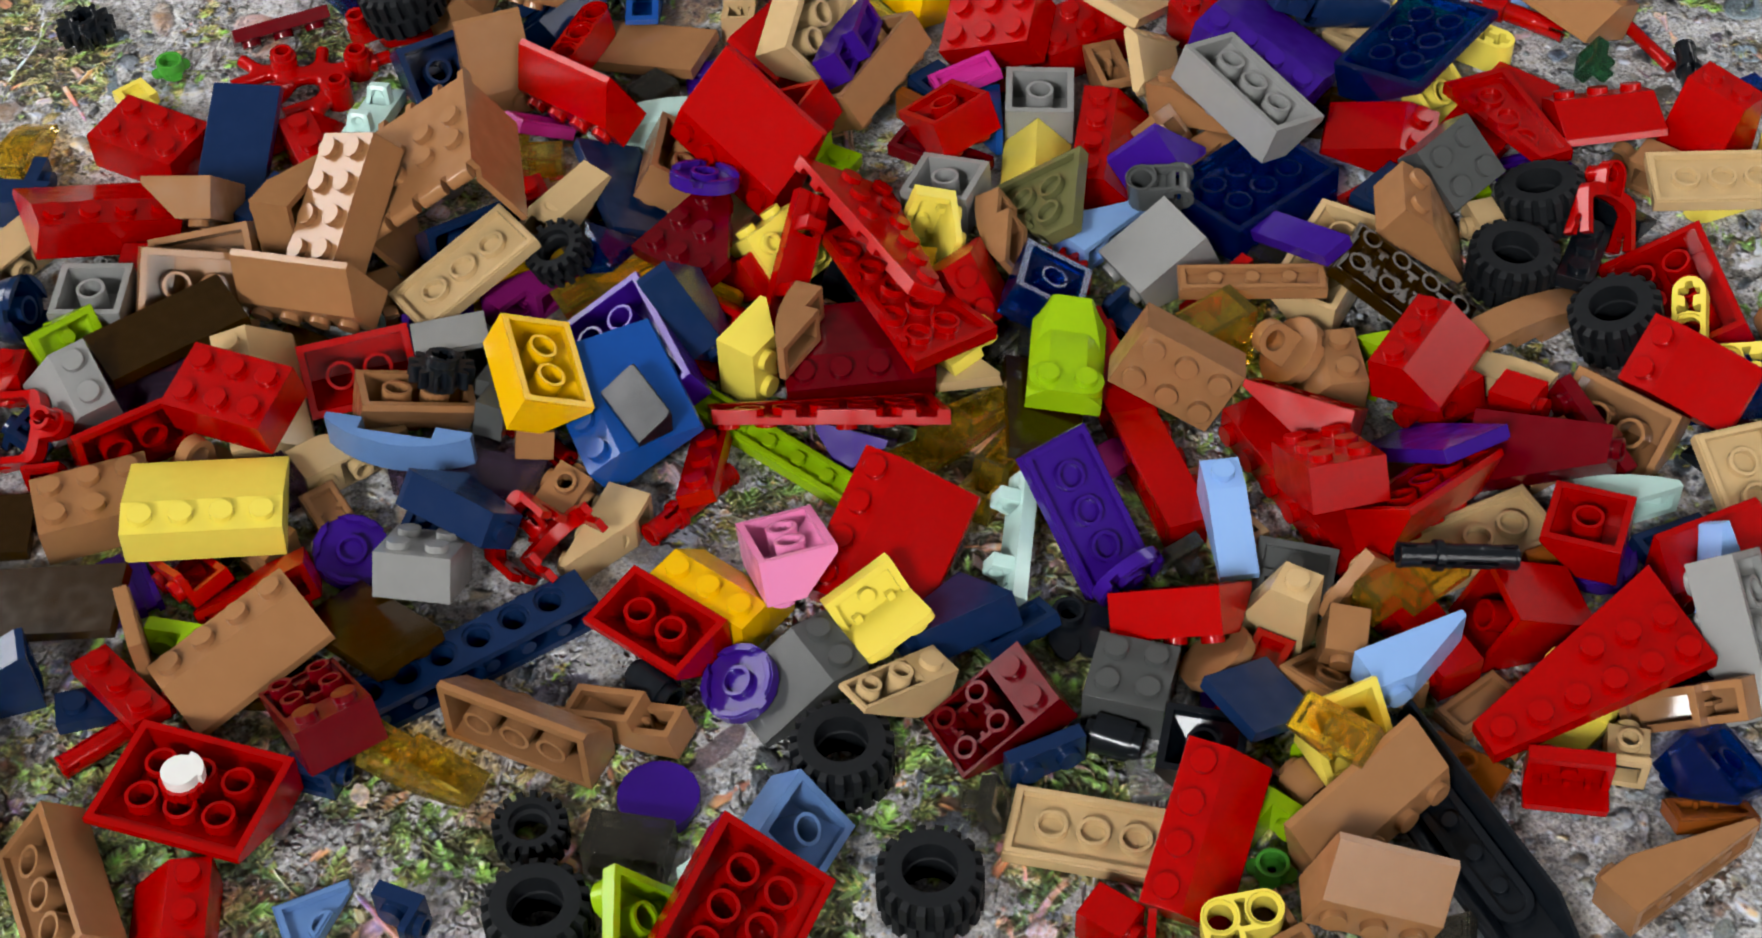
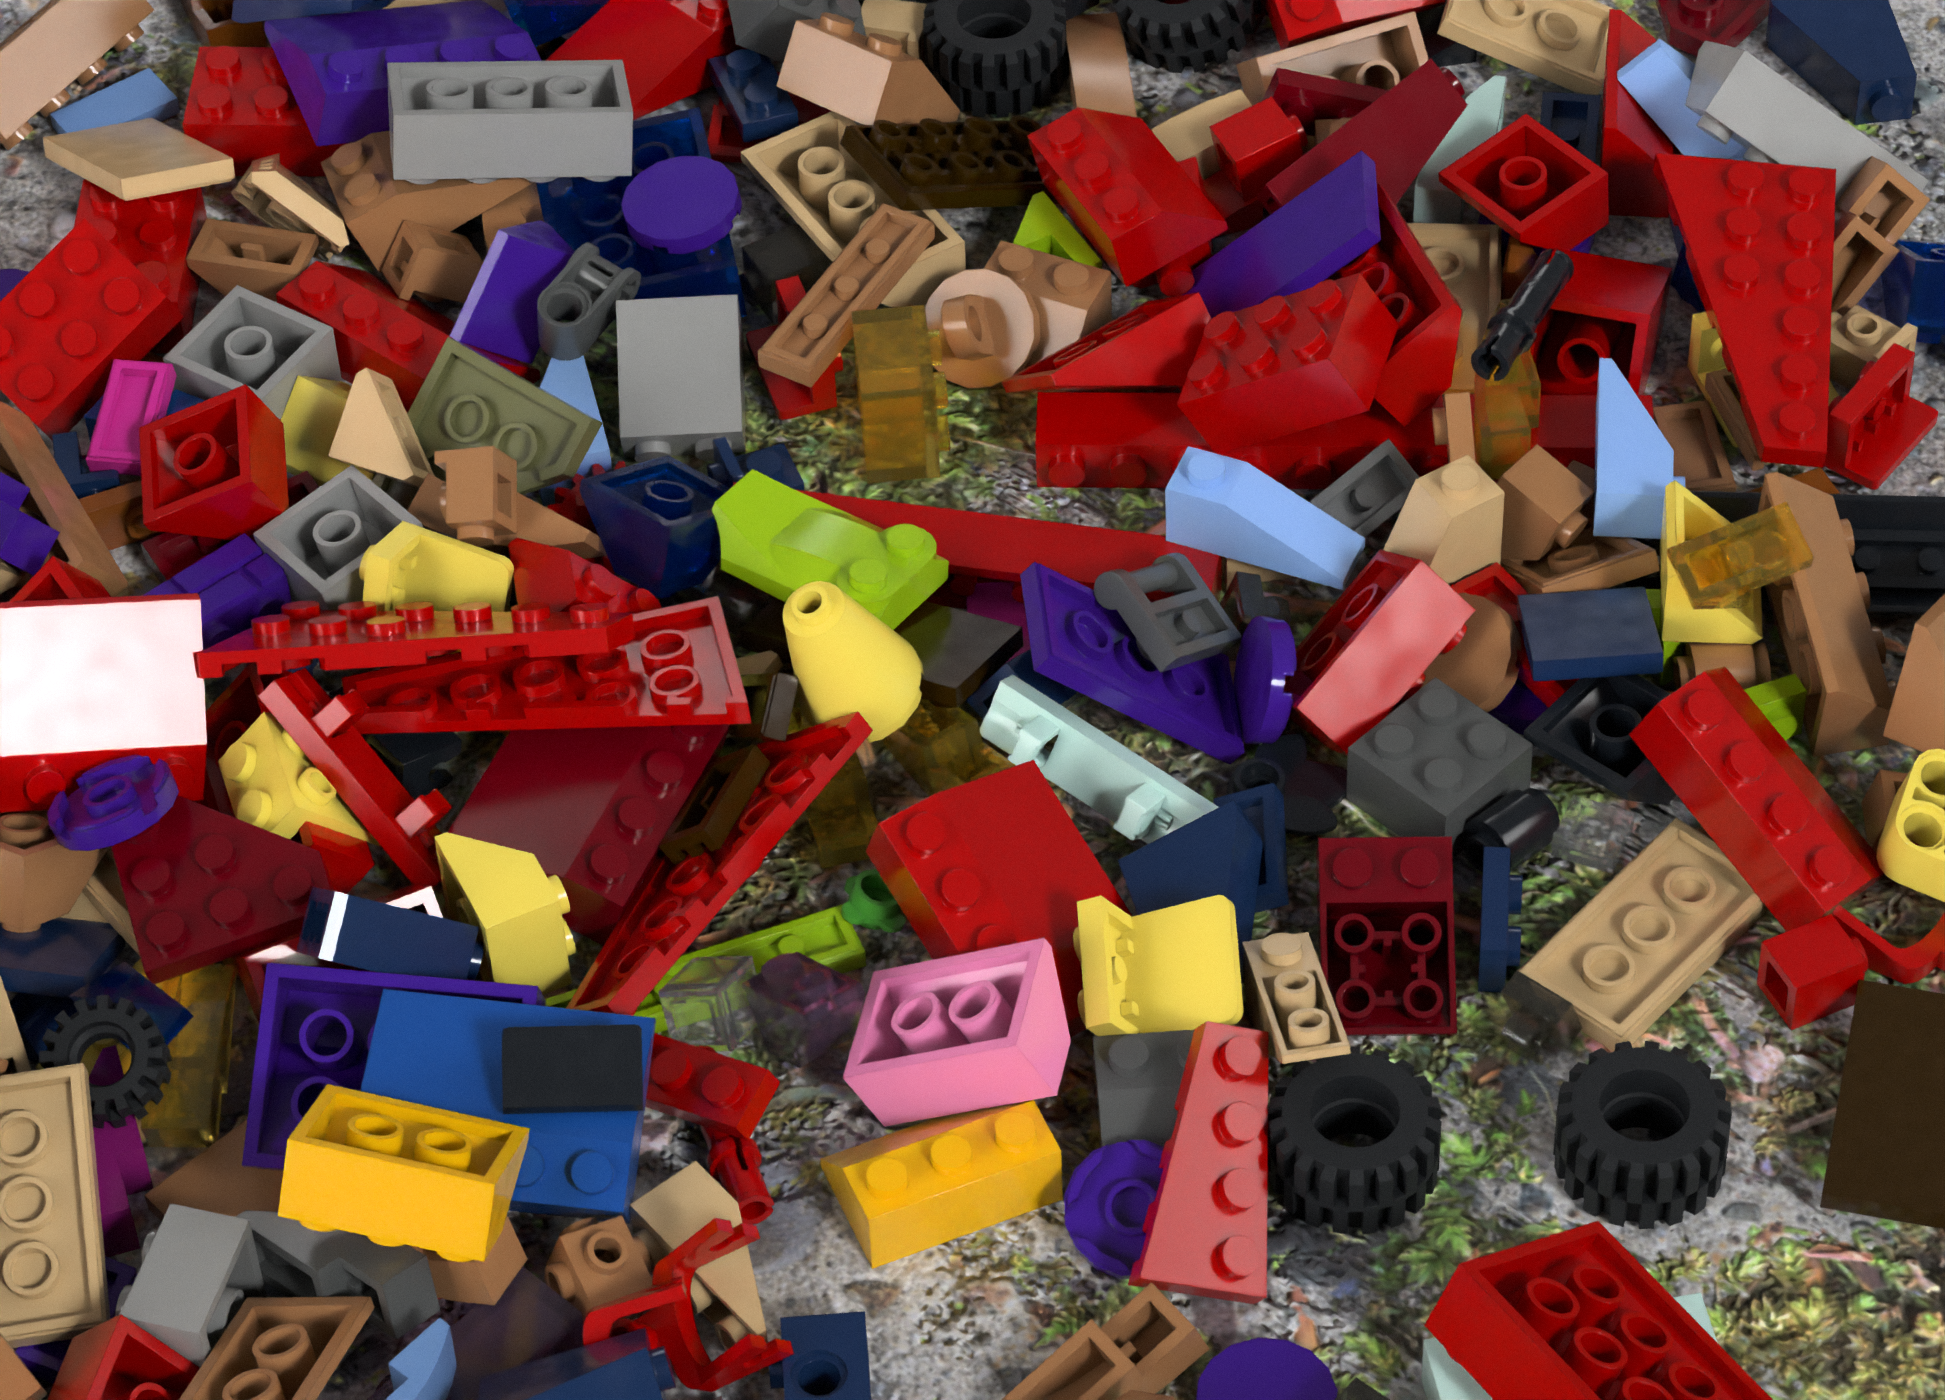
camera: 60 degrees left, 0 degrees up
(441, 370) = (270, 1307): black gear -> none
(654, 682) = (1052, 1314): black brick -> none
(660, 625) = (969, 1250): red slope -> none
(765, 460) = (708, 1003): none -> clear panel
(765, 703) = (1212, 1196): none -> wing
(772, 487) = (803, 1007): none -> slope
(798, 325) = (536, 821): medium nougat slope -> none
(800, 818) = (1411, 1242): medium blue slope -> none
(848, 445) = (770, 892): dark purple slope -> none
(873, 394) = (714, 804): none -> dark brown tile
(885, 162) = (233, 588): none -> dark purple brick
(948, 381) = (770, 708): none -> dark brown tile
(982, 390) = (849, 661): none -> light yellow cone
(988, 207) = (478, 493): none -> medium nougat brick
(1016, 160) = (378, 432): none -> tan slope
(1121, 517) = (1172, 628): none -> dark grey plate
(1177, 367) = (950, 442): medium nougat brick -> none
(1258, 190) = (681, 204): none -> dark purple tile
(1271, 860) = (1830, 767): bright green plate -> none
(1301, 238) = (816, 203): dark purple tile -> none

